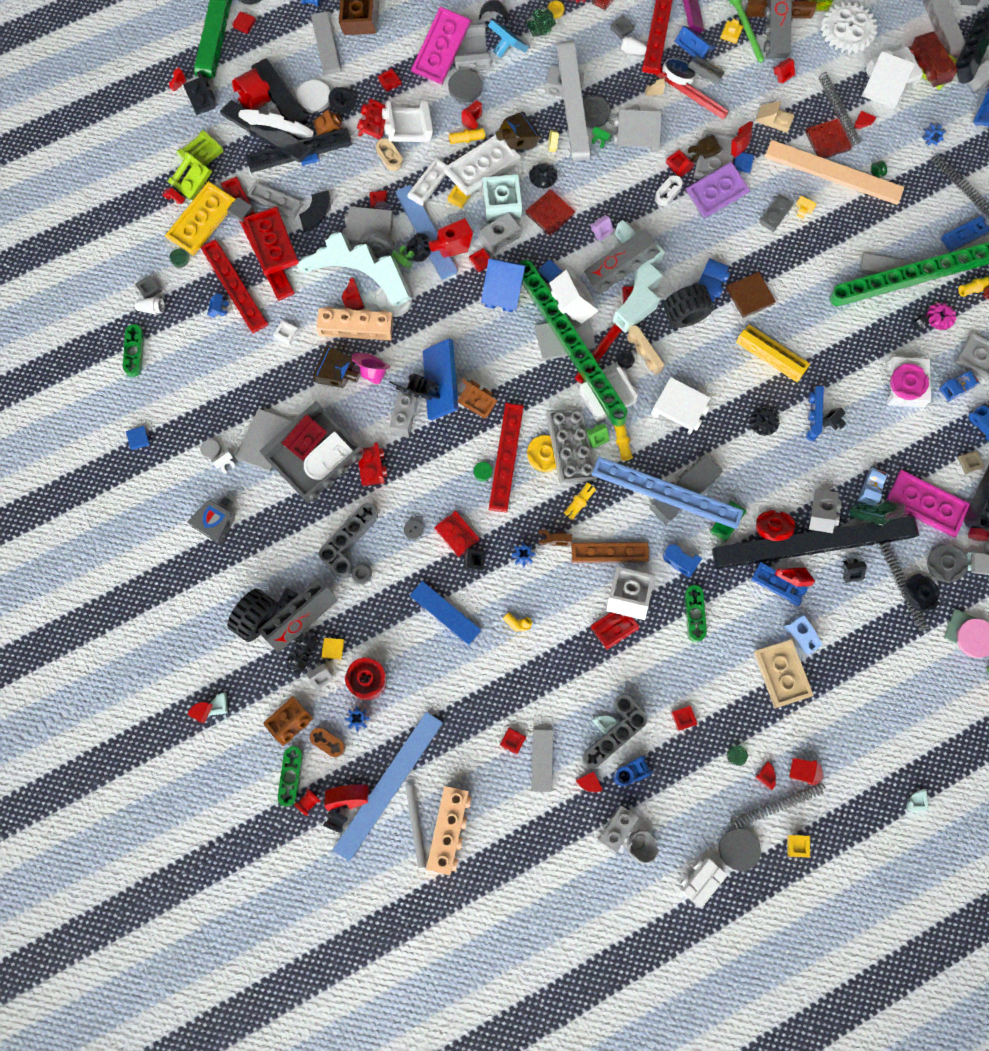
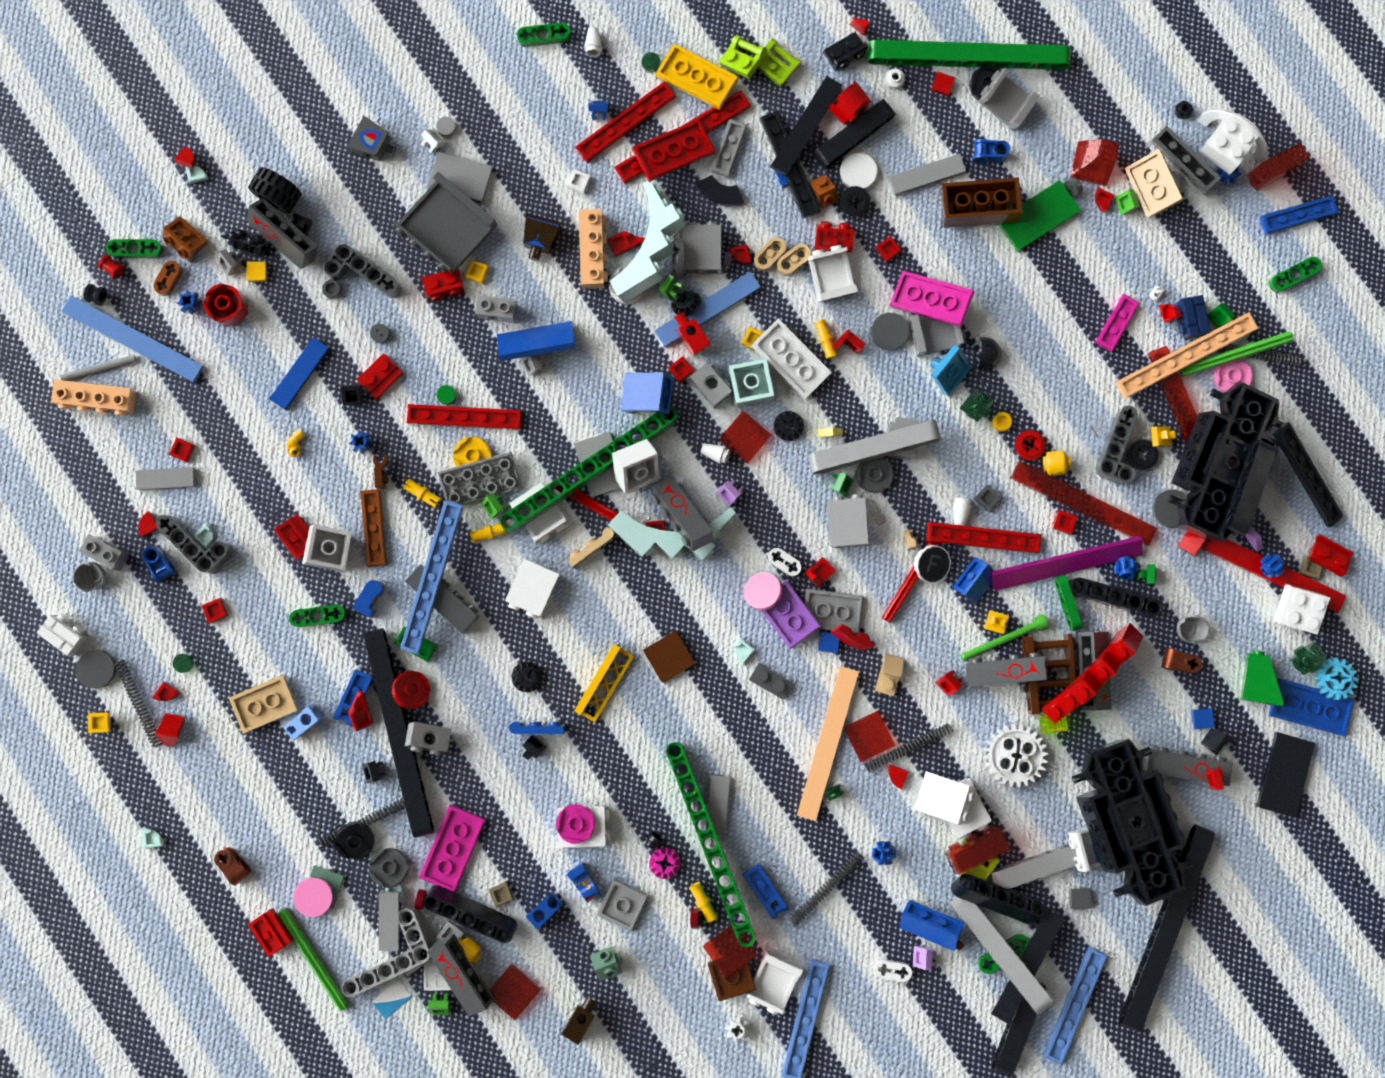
camera: 85 degrees right, 10 degrees up
(137, 437) = (451, 55): blue tile -> none
(148, 287) = (614, 37): dark grey tile -> none
(171, 193) = (719, 45): red tile -> none
(232, 62) = (894, 83): none -> white plate
(240, 209) = (709, 114): dark grey tile -> none
(277, 121) = (810, 132): white tile -> none
(304, 437) = (456, 213): dark red plate -> none
(326, 457) = (440, 239): white window -> none
(350, 795) = (118, 301): red slope -> none
(362, 433) = (477, 272): none -> yellow tile
(370, 367) = (547, 269): dark pink piece -> none
(382, 174) = (769, 254): none -> tan plate
(418, 386) = (520, 317): black hinge -> none
(428, 182) = (764, 304): white tile -> none
(477, 400) = (517, 379): dark orange bracket -> none
(518, 132) = (832, 392): dark brown torso -> none
(549, 271) = (674, 442): blue tile -> none
(563, 235) = (716, 452): none -> white cone
(625, 355) = (580, 524): black plate -> none
(688, 306) = (638, 587): black tyre -> none
(695, 207) = (762, 591): none -> bright pink tile
(706, 69) = (939, 594): dark grey plate -> none
(706, 147) = (838, 600): dark brown plate -> none
(713, 276) = (679, 613): blue brick -> none
(748, 232) = (743, 650): none -> light aqua tile
(805, 206) = (779, 711): yellow tile -> none
(872, 487) = (463, 790): light blue leg -> none
(878, 514) = (428, 795): clear green plate -> none
(947, 715) = (234, 867): none -> copper piece

